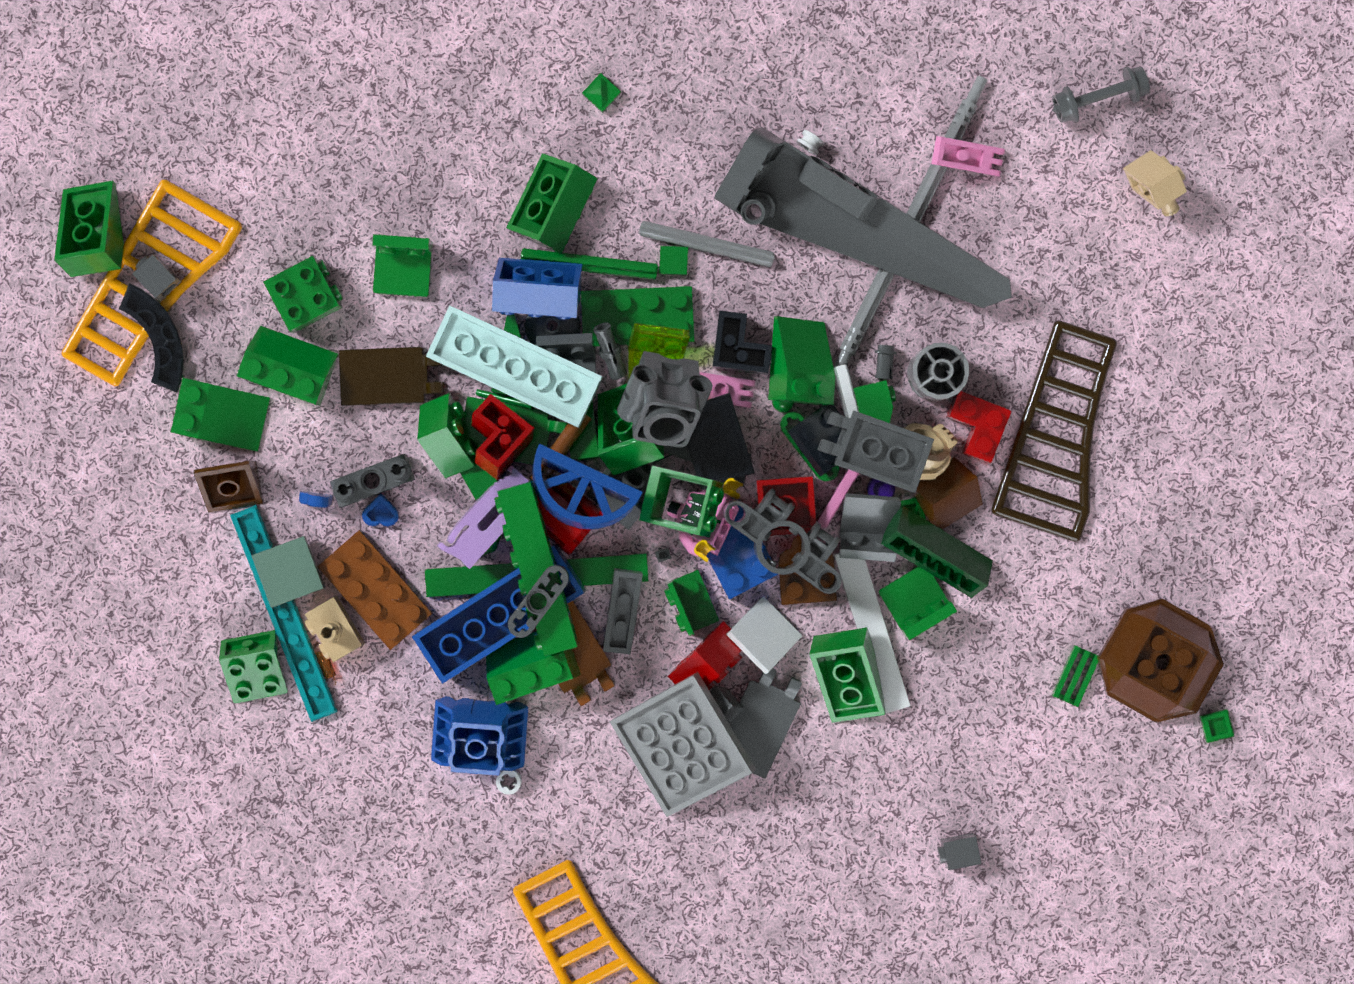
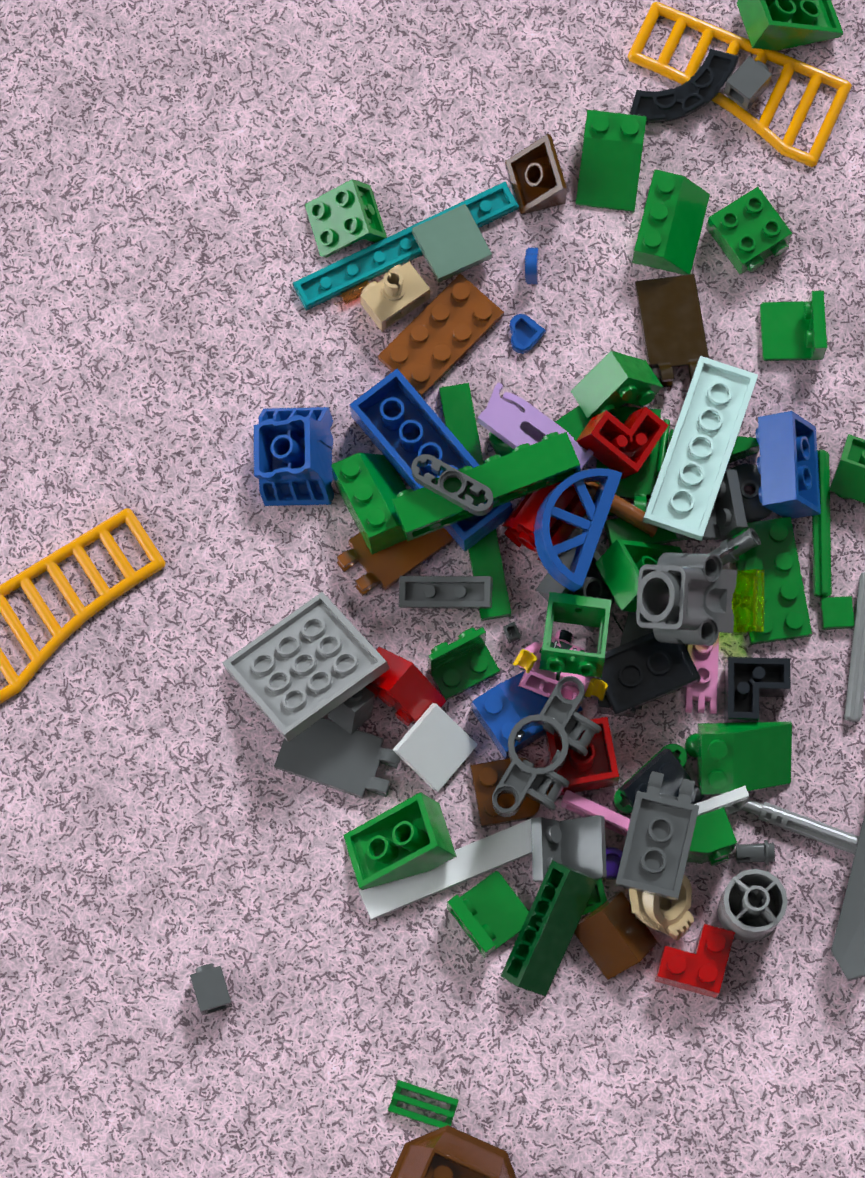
camera: 85 degrees right, 15 degrees down
(353, 489) = (550, 300): dark grey piece -> none
(505, 789) = (237, 491): white bush -> none
(1025, 431) = (682, 1088): dark brown bar -> none

